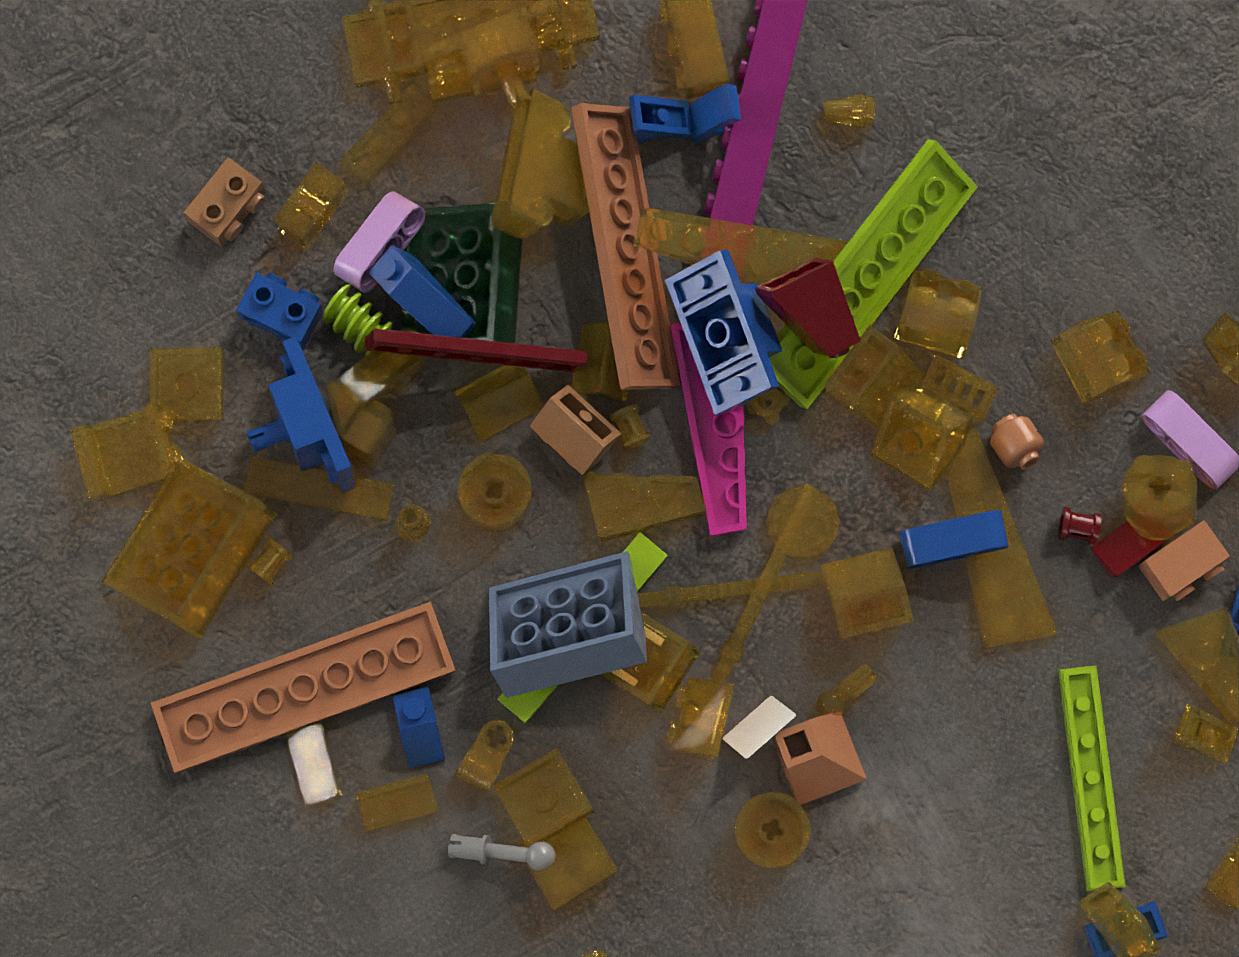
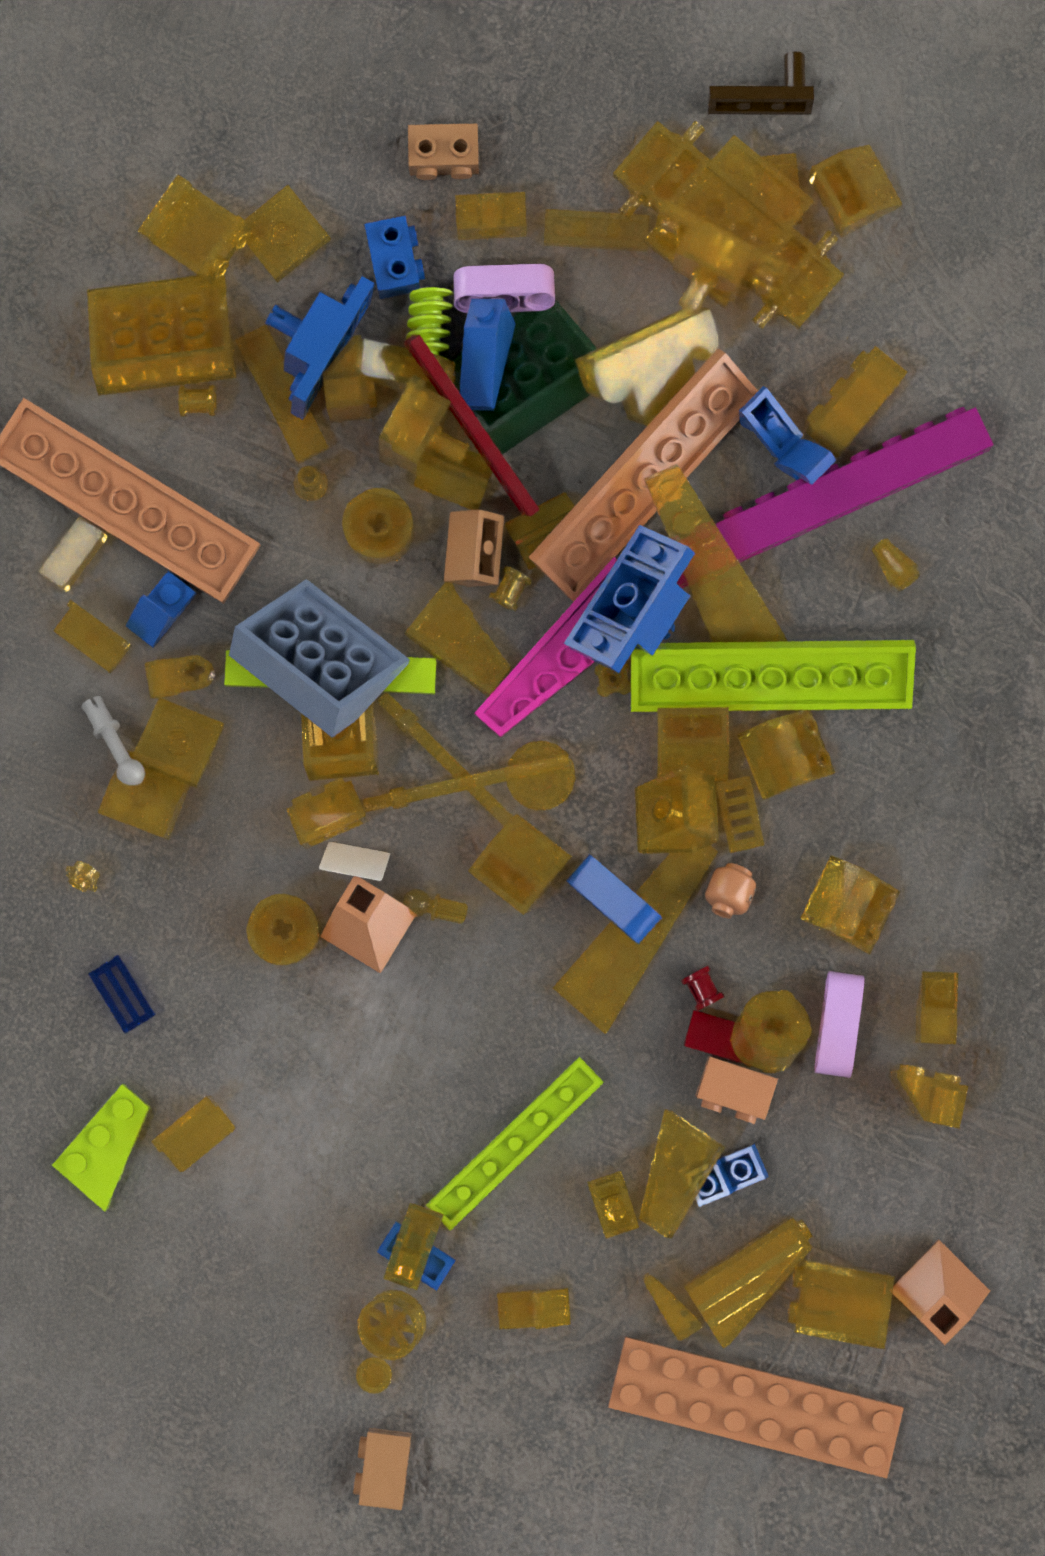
camera: 60 degrees right, 5 degrees up
(446, 394) = (417, 429): none -> clear yellow brick
(813, 307) = (704, 651): dark red slope -> none

